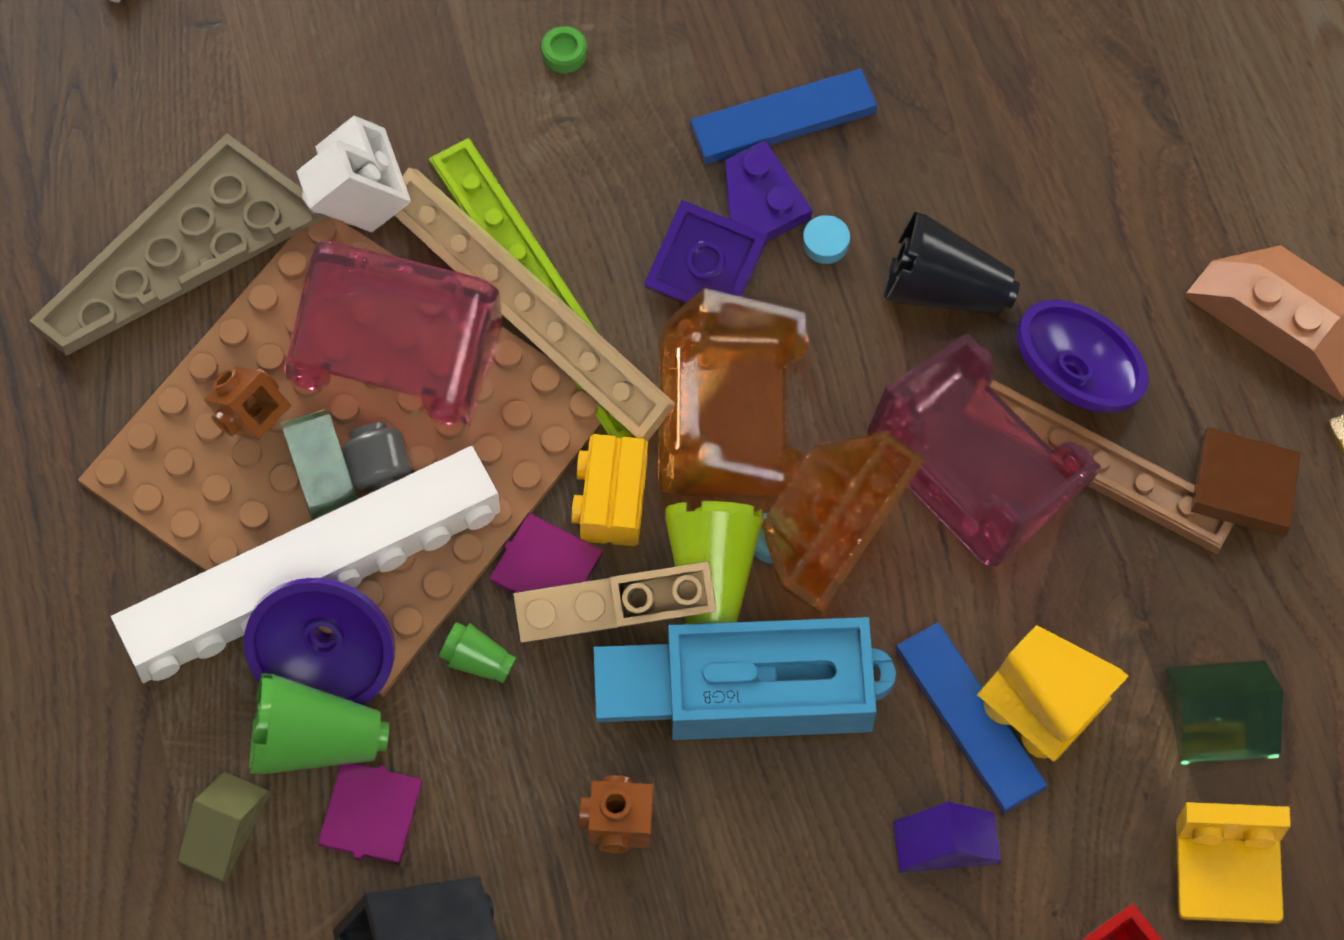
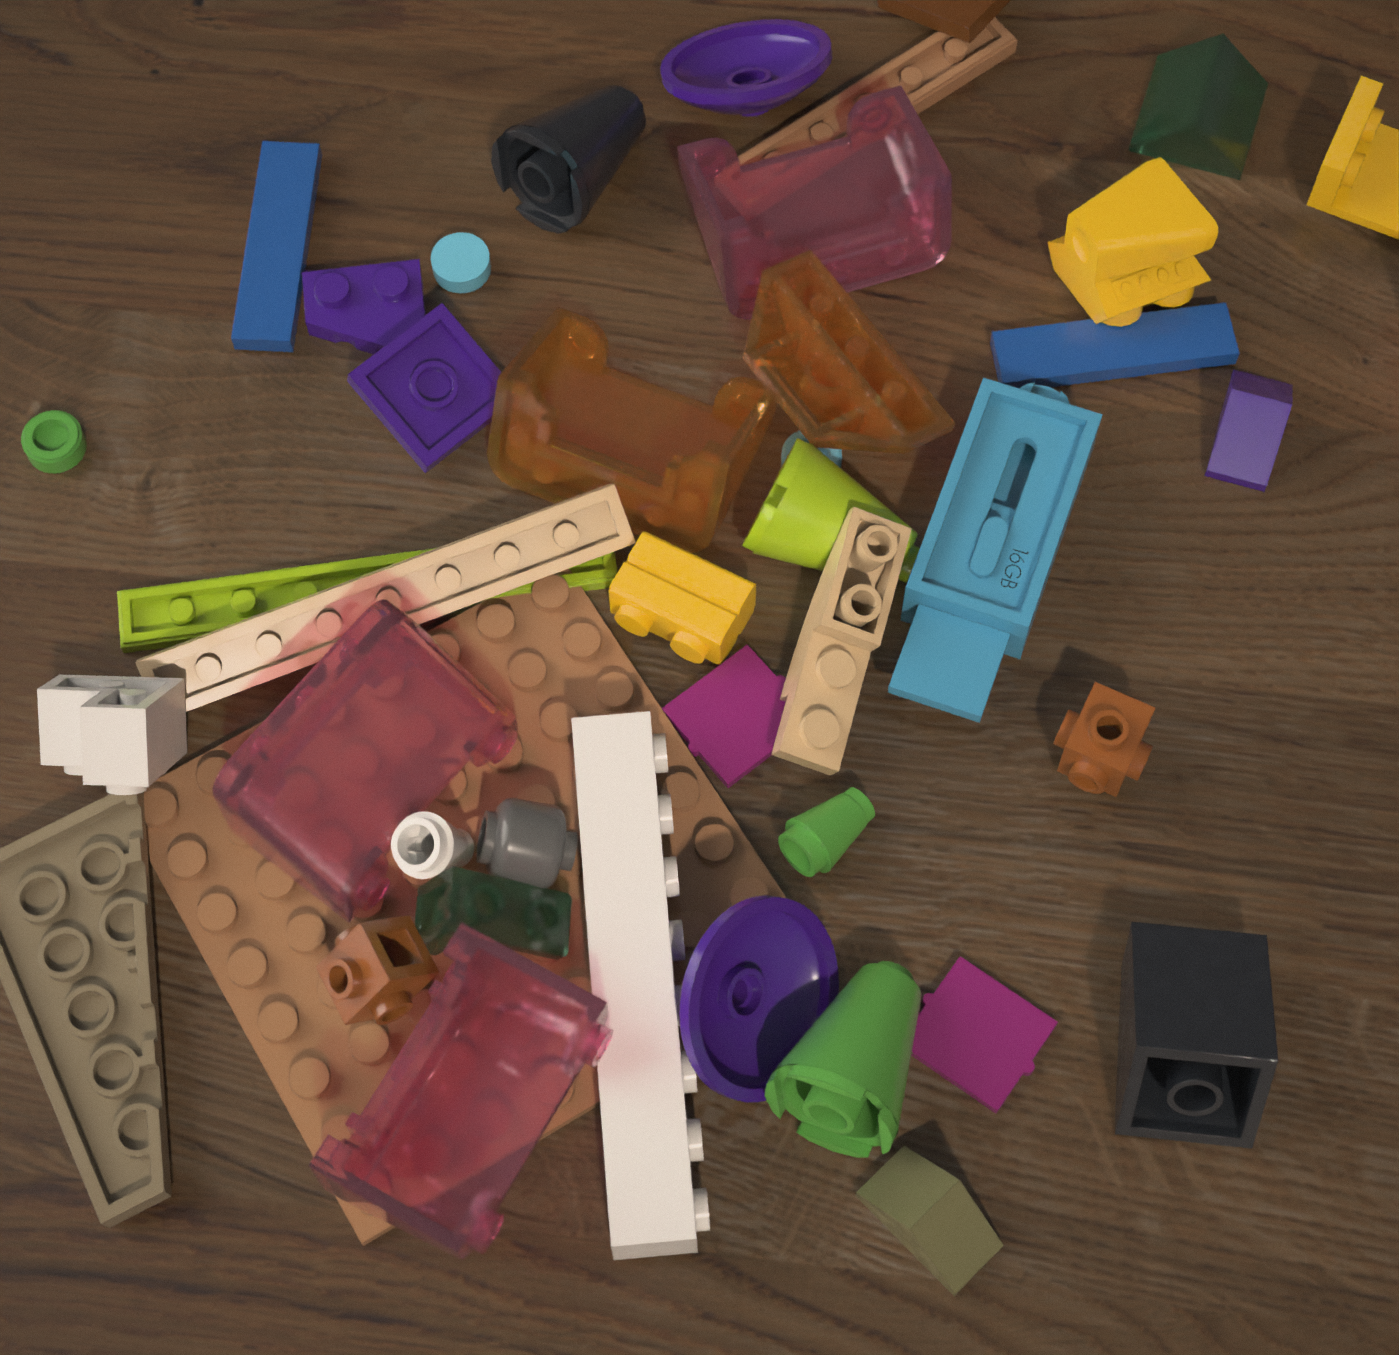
camera: 65 degrees left, 0 degrees up
(170, 486) = (466, 1097): none -> clear pink windscreen
(344, 397) = (429, 845): none -> white cone

